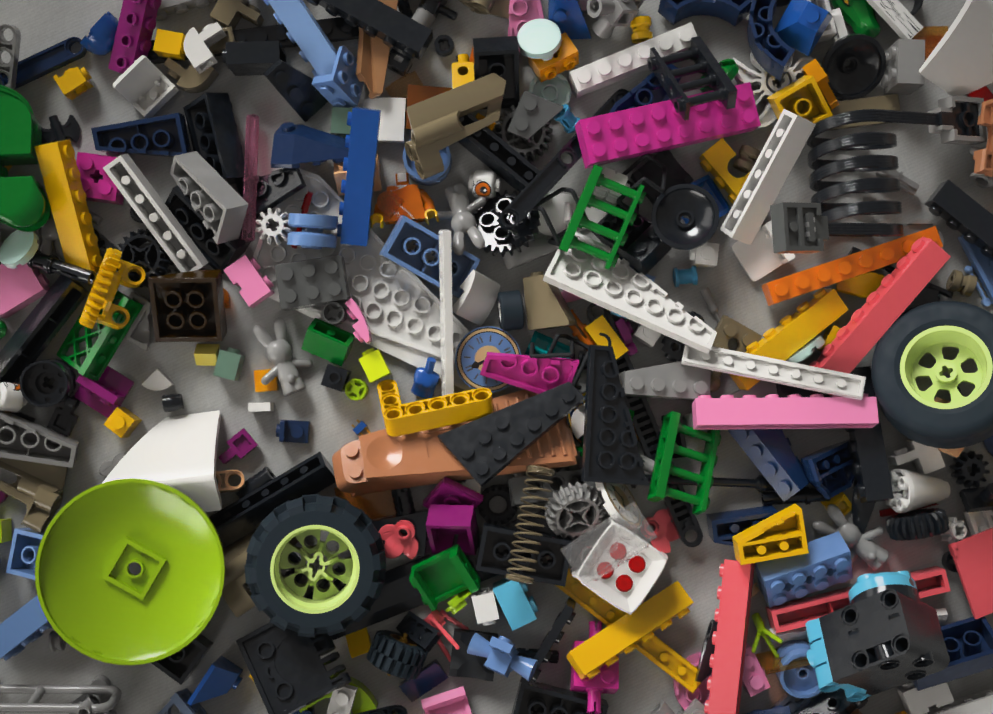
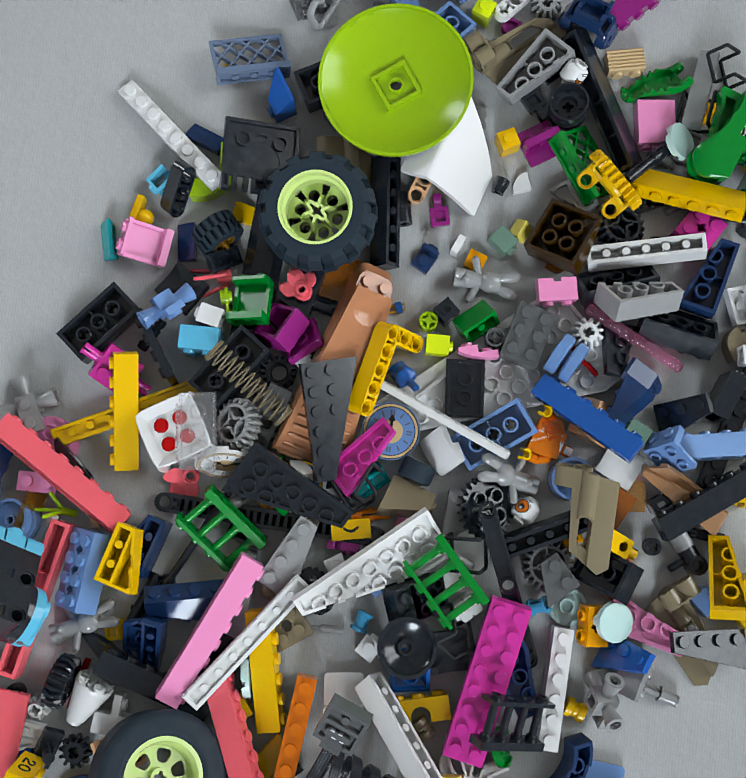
camera: 120 degrees right, 5 degrees down
(401, 313) = (464, 388): none -> black tile

